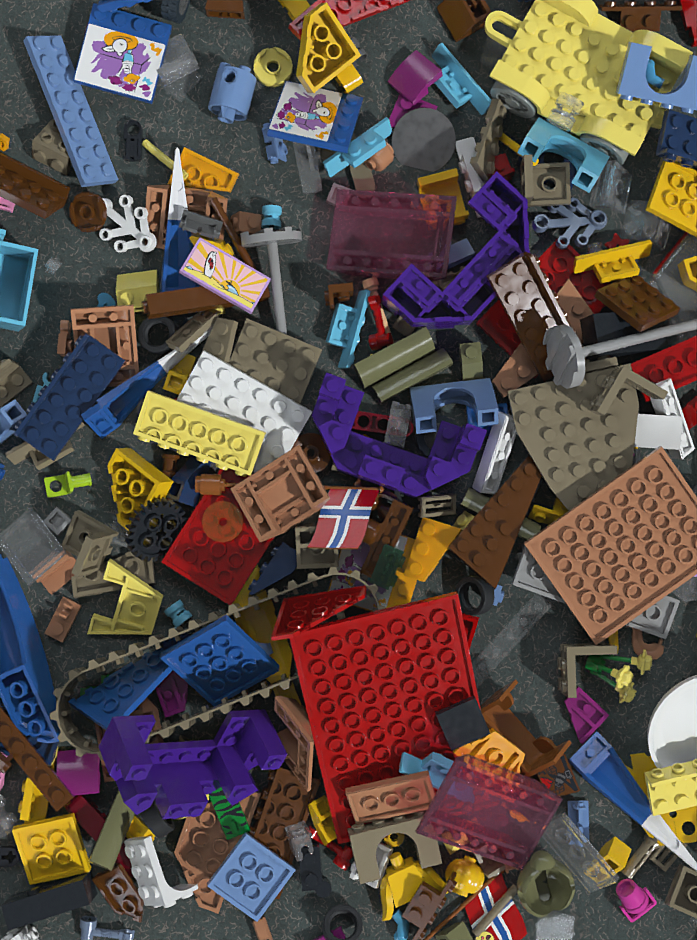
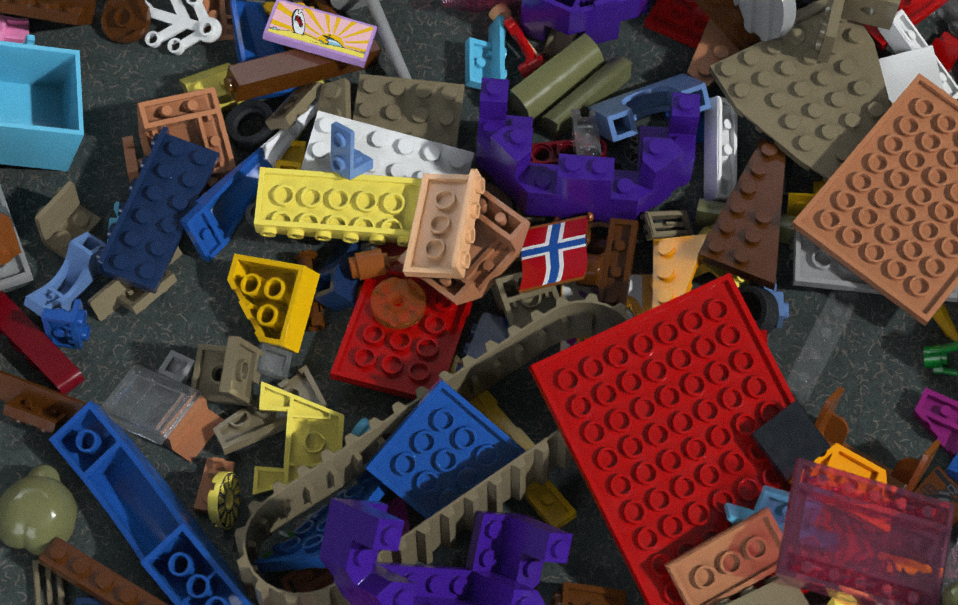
camera: 20 degrees left, 25 degrees down
(53, 265) = (95, 85): clear plate -> none
(64, 640) = (224, 500): none -> light yellow tile
(68, 483) = (177, 321): lime bracket -> none
(154, 529) = (311, 332): black gear -> none
(212, 405) = (344, 158): none -> medium blue bracket
(268, 479) = (444, 225): none -> light nougat bracket
(296, 738) = (584, 513): nougat slope -> none
(308, 610) = (544, 346): red slope -> none
(339, 291) = (465, 23): reddish brown bracket -> none
(386, 567) = (630, 292): clear green bracket -> none
(471, 361) = (651, 59): olive slope -> none
(567, 663) = (911, 338): dark tan bracket -> none

